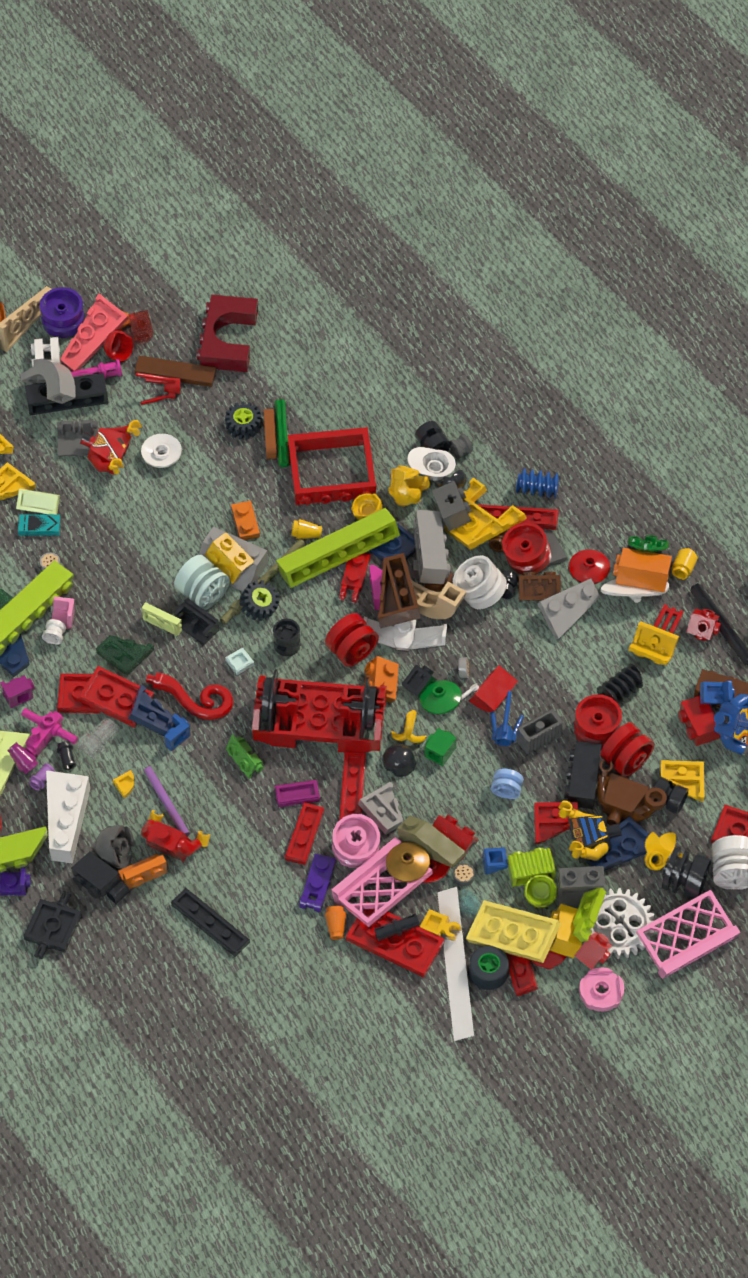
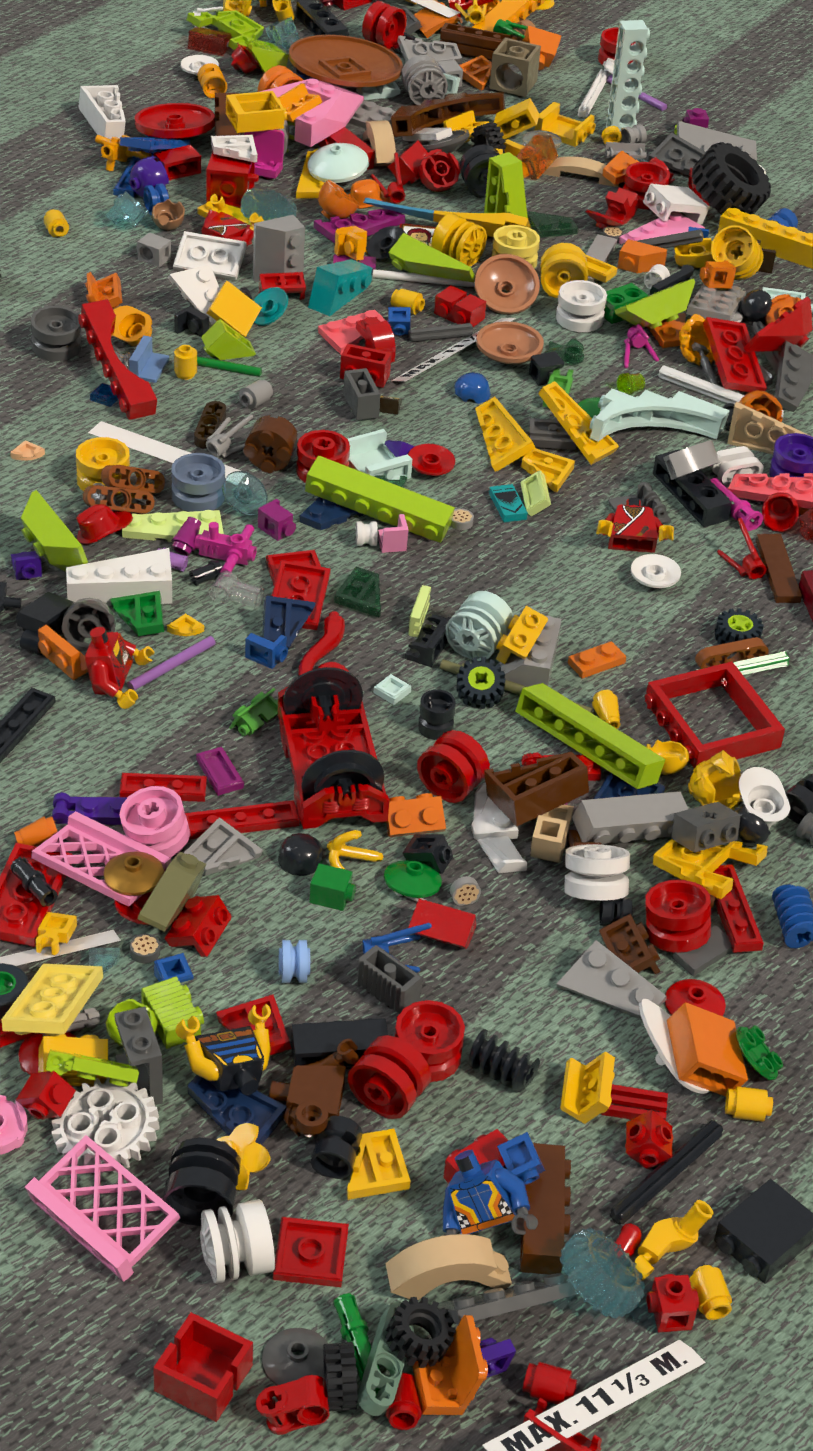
camera: 70 degrees right, 15 degrees down
(103, 809) = (141, 612): none -> green wing

